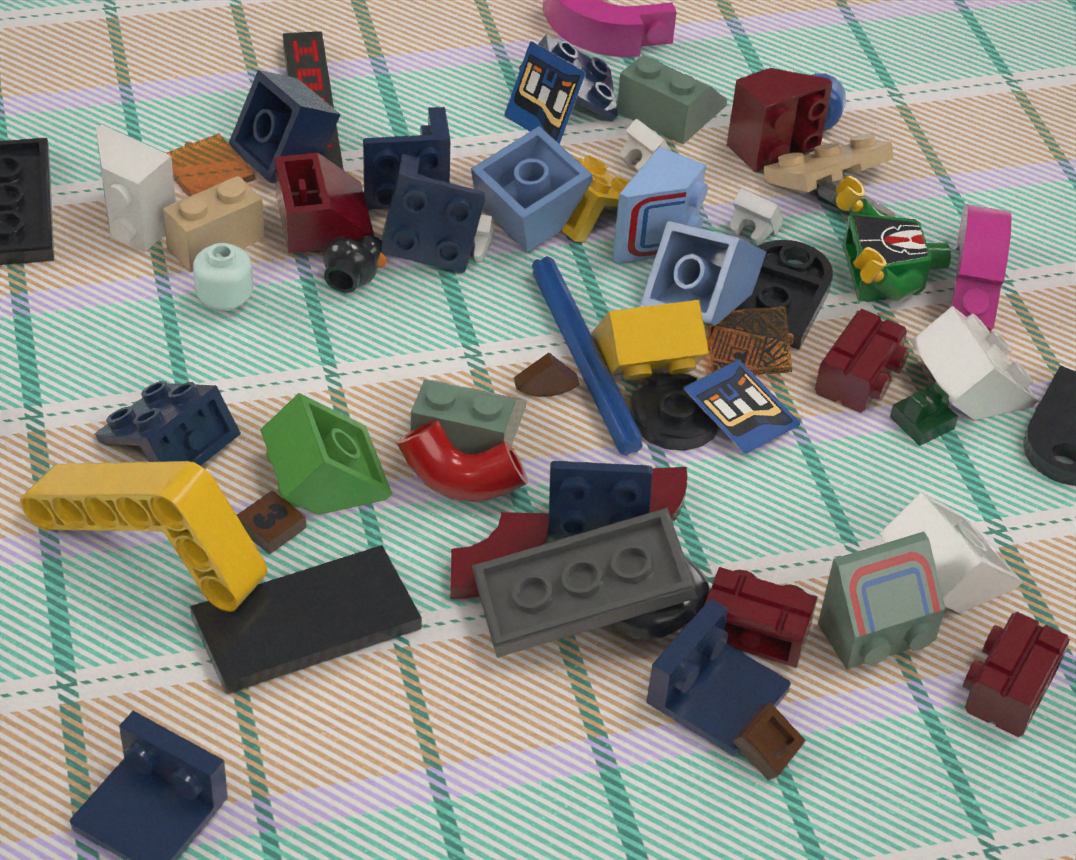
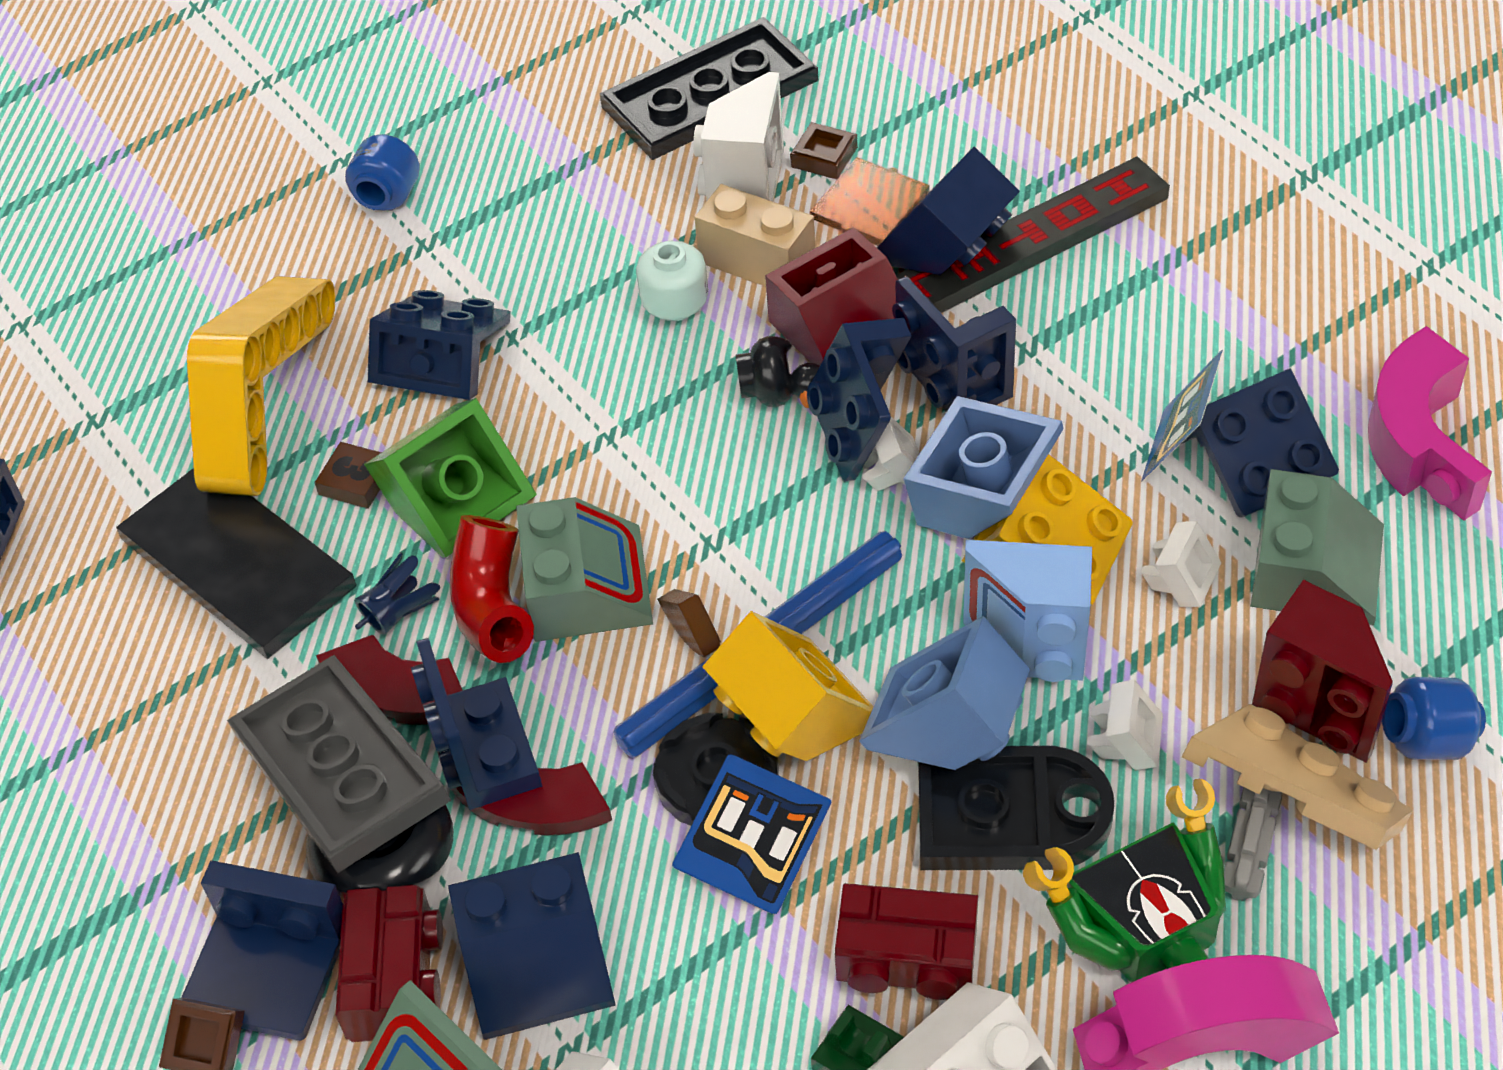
camera: 75 degrees right, 5 degrees up
(429, 536) = (392, 598): none -> dark blue piece
(753, 337) = (876, 804): clear orange piece -> none
(781, 533) = (531, 946): none -> dark blue slope

